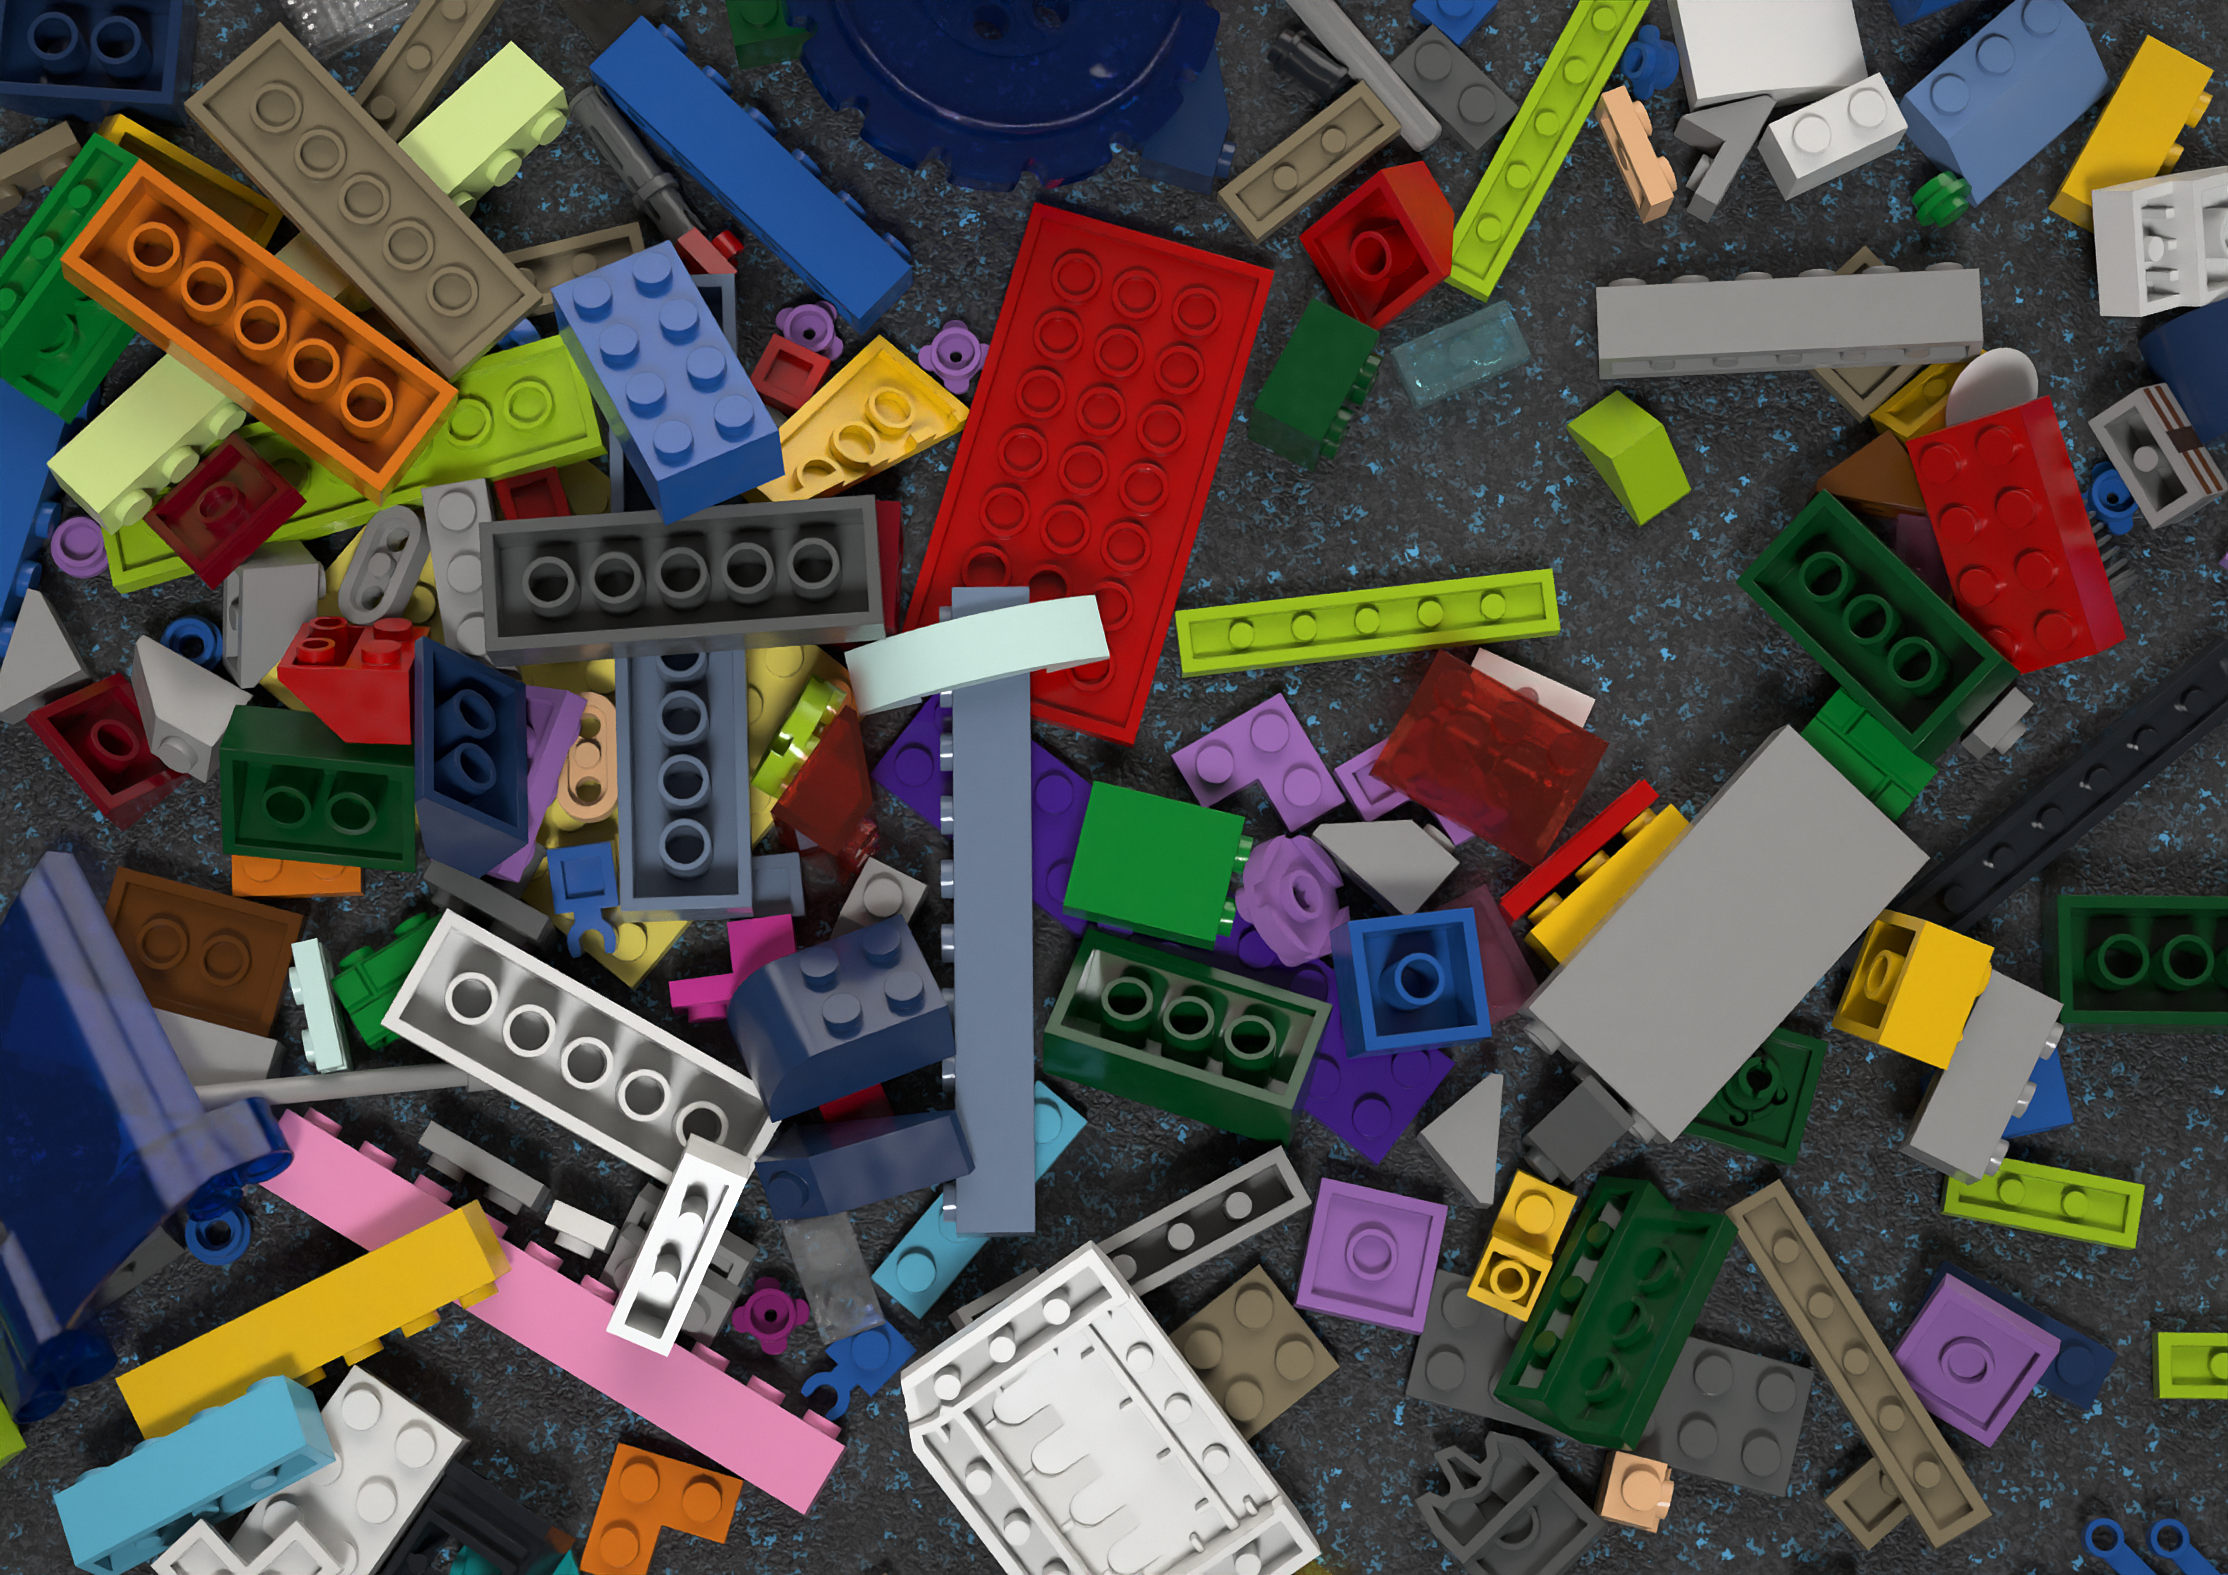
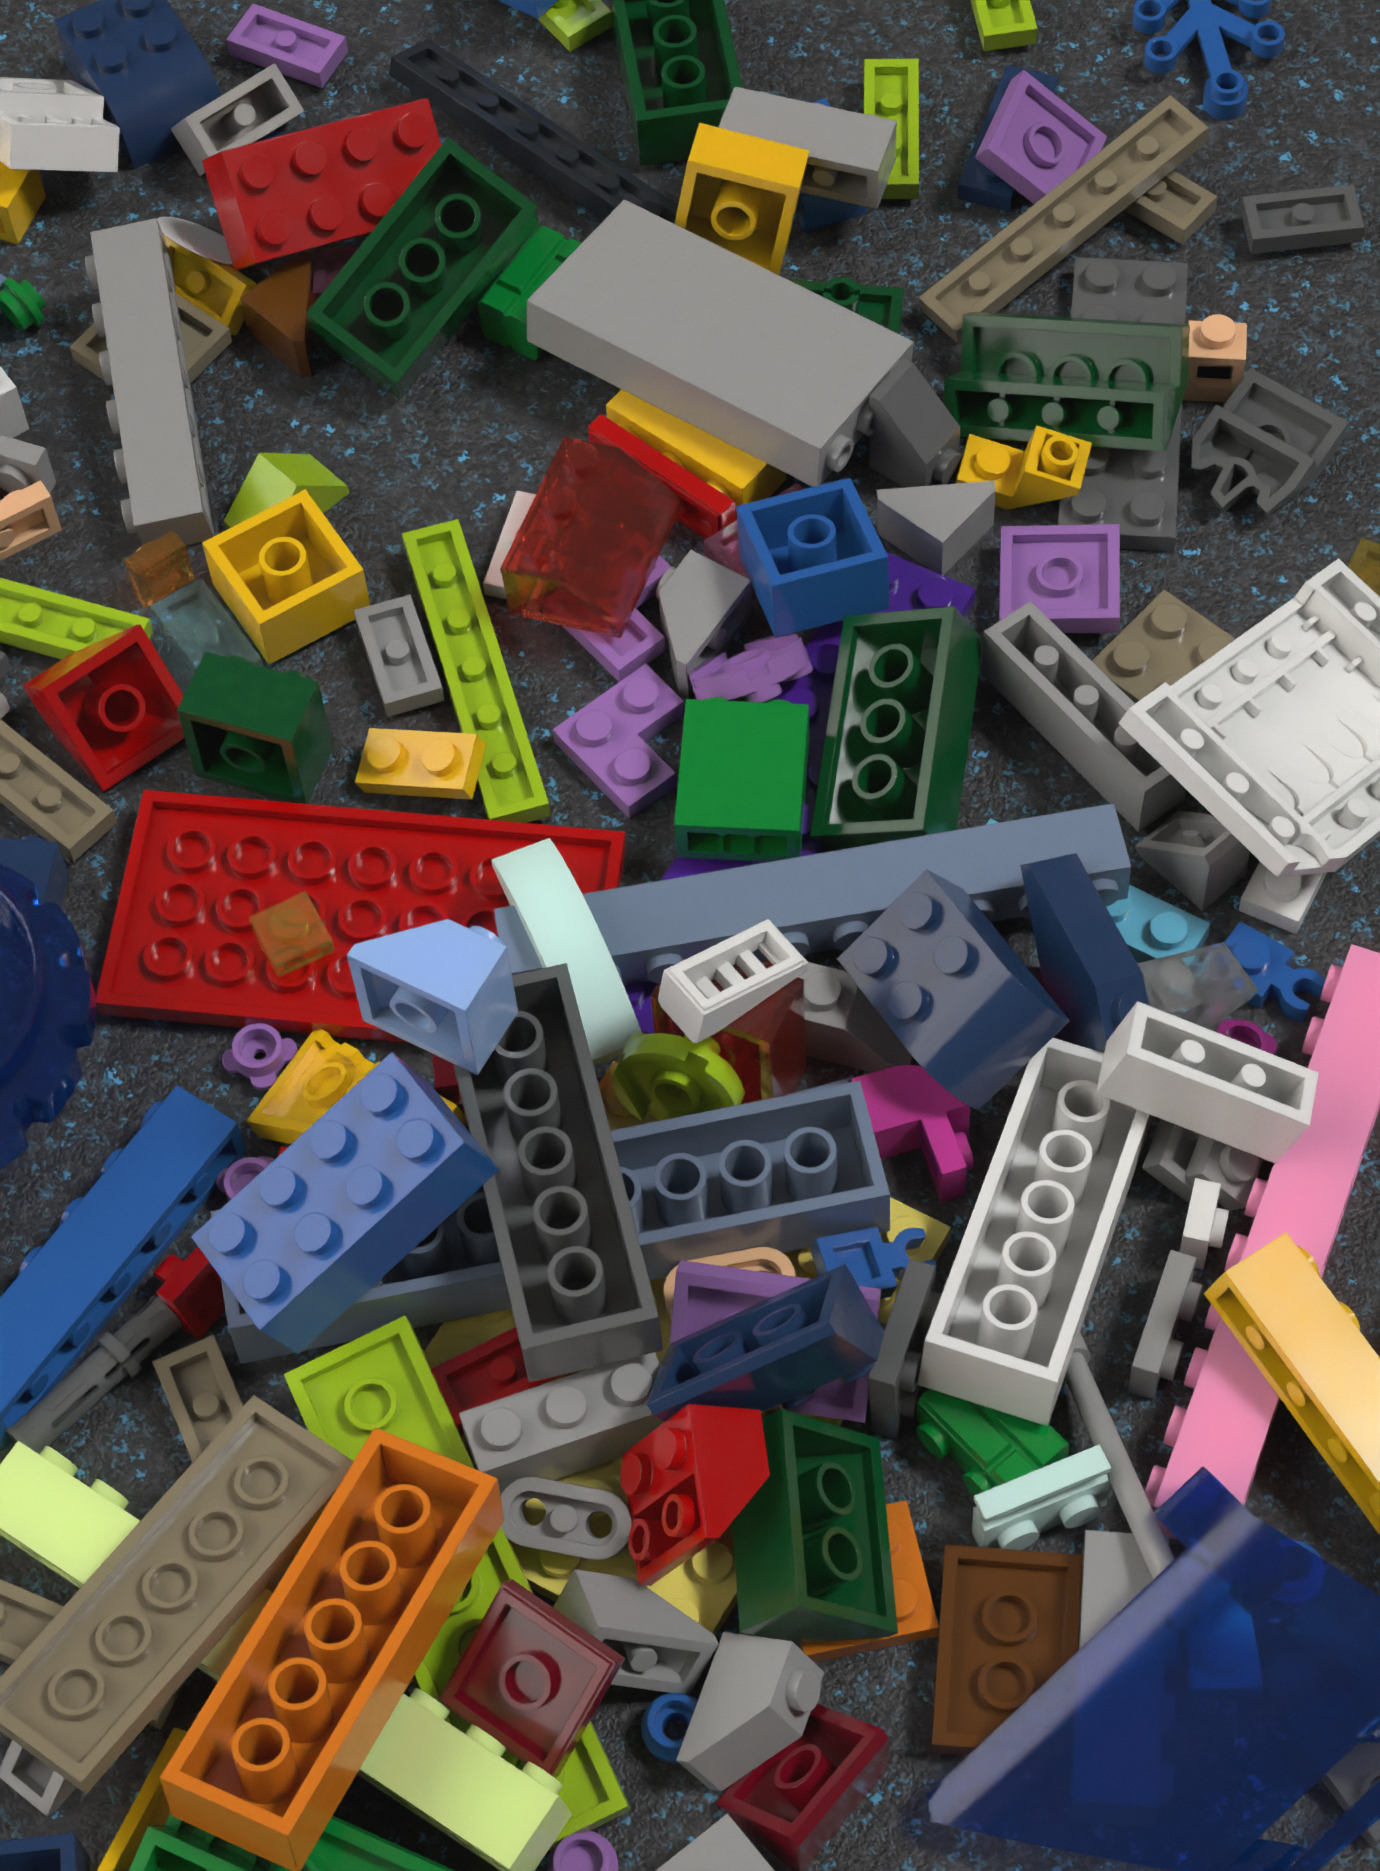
camera: 90 degrees left, 20 degrees down
(814, 733) = (704, 1010): none -> white slope
(829, 486) = (438, 989): none -> light blue slope
(1068, 396) = (291, 934): none -> clear yellow plate
(1257, 551) = (420, 763): none -> yellow plate
(1402, 548) = (399, 655): none -> light grey plate
(1509, 439) = (286, 576): none -> yellow brick
(1556, 312) = (159, 568): none -> clear orange plate

